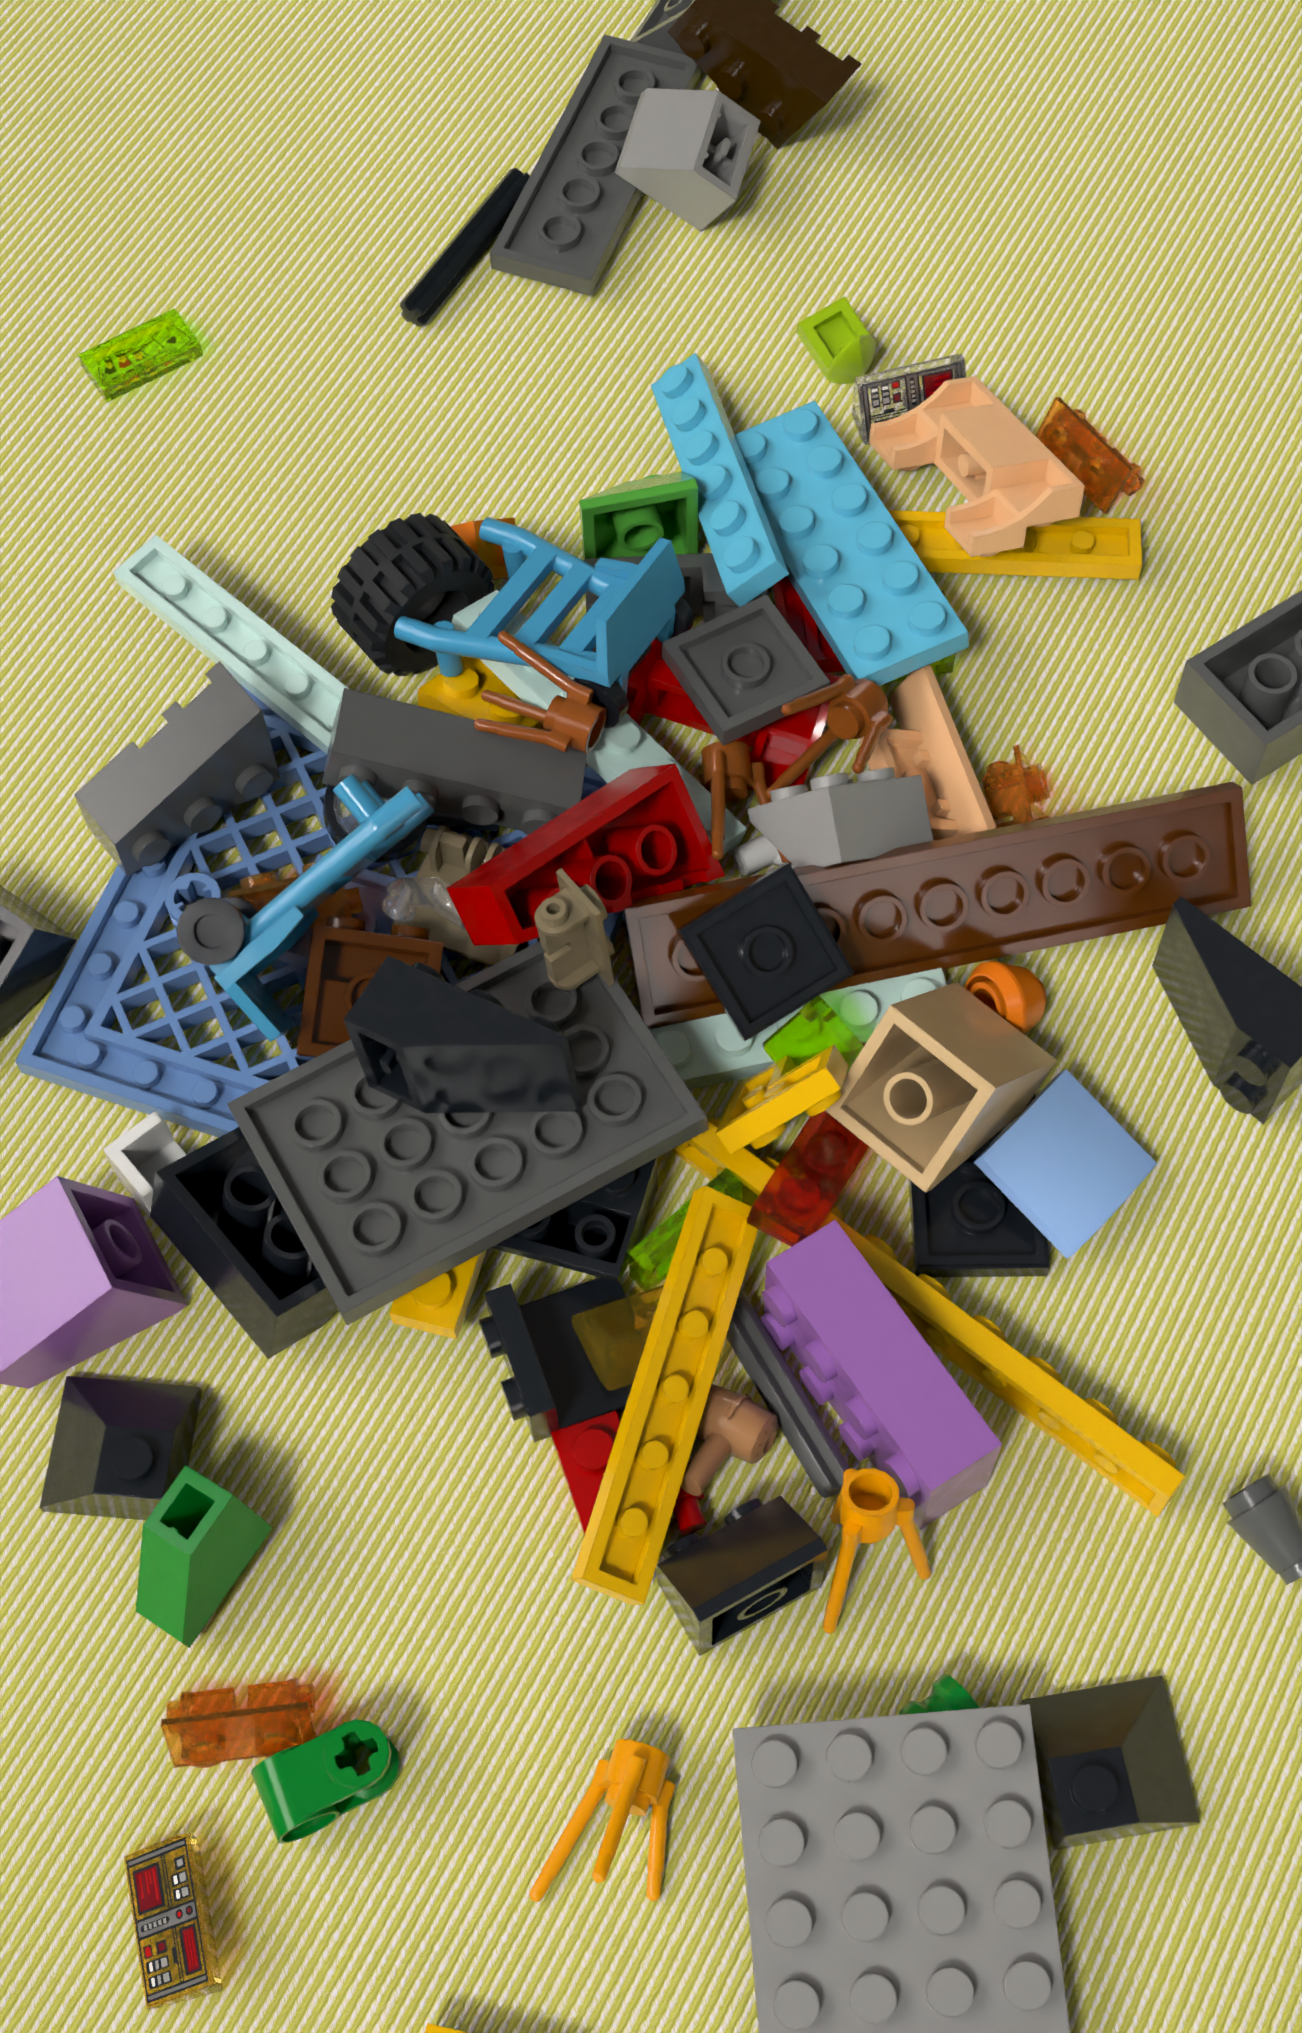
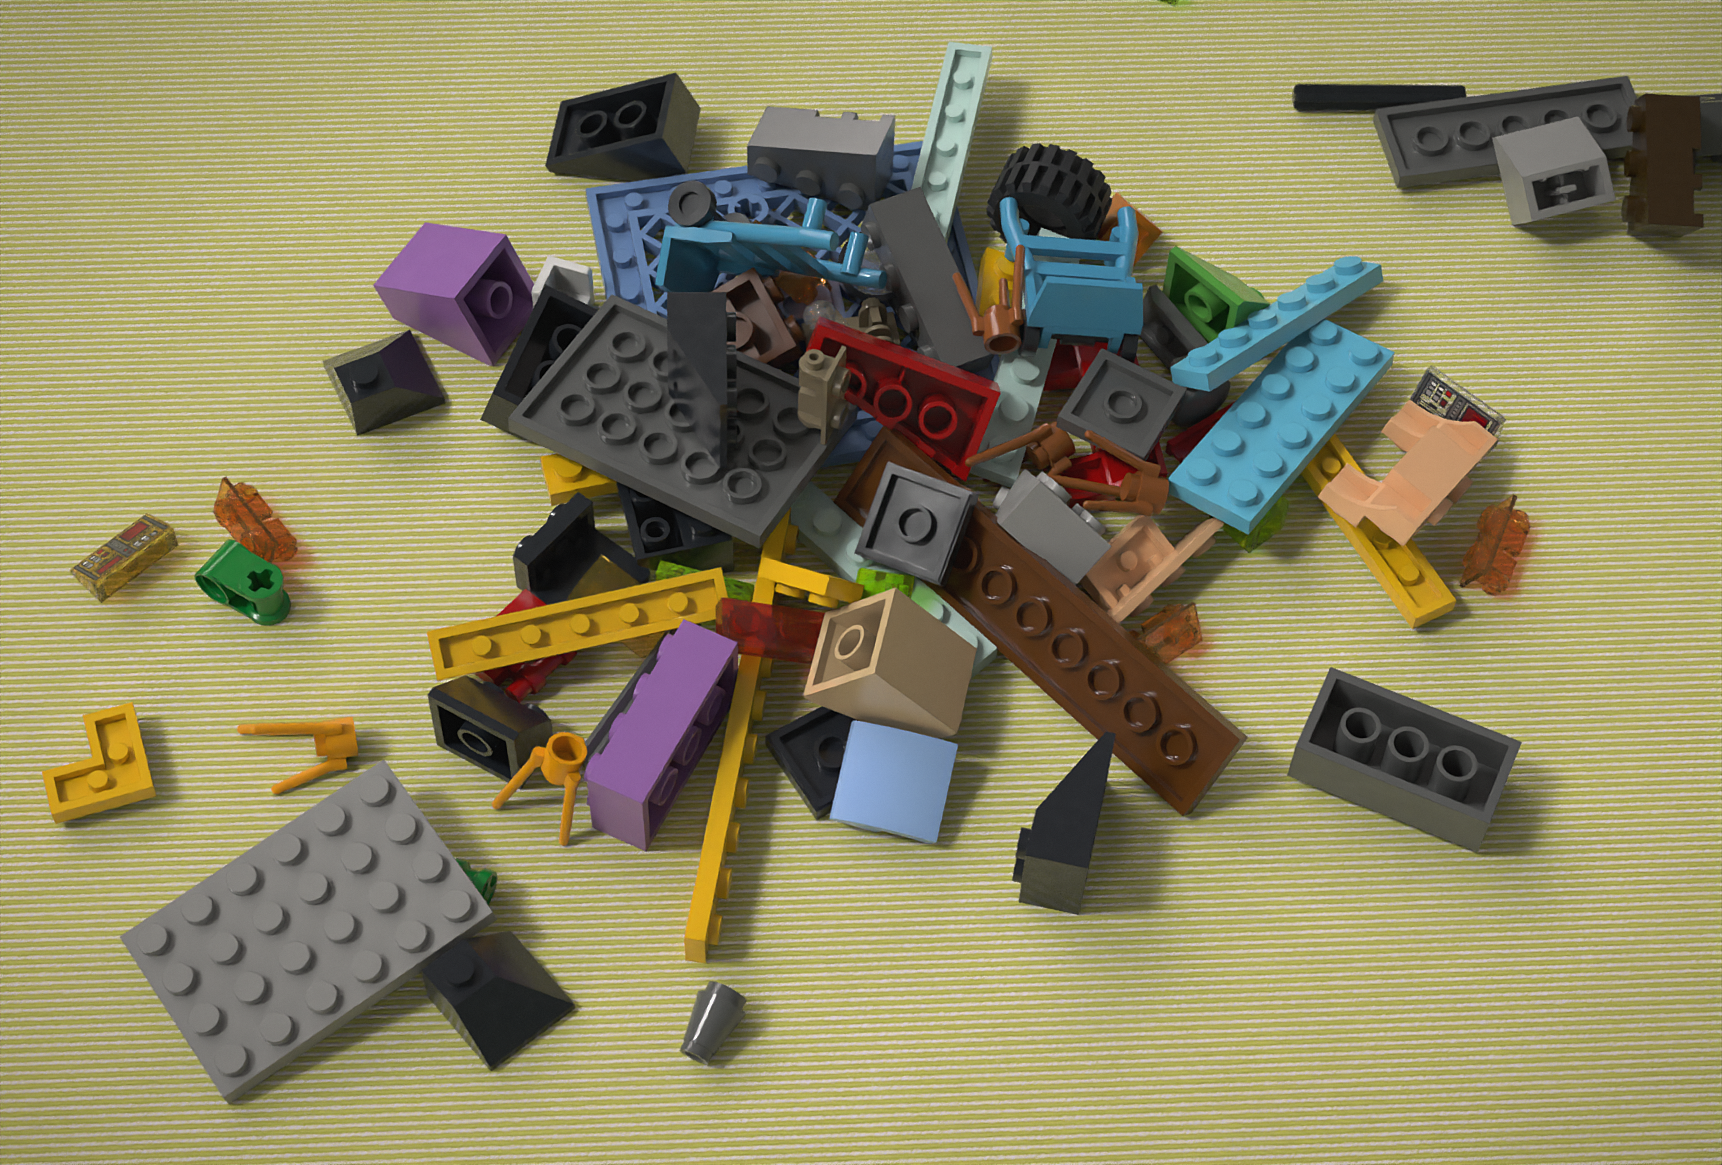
camera: 55 degrees right, 5 degrees down
(194, 1554) = (338, 442): green slope -> none
(728, 1427) = (588, 679): medium nougat piece -> none
(838, 342) = (1470, 348): lime plate -> none
(1009, 992) = (995, 694): orange cone -> none

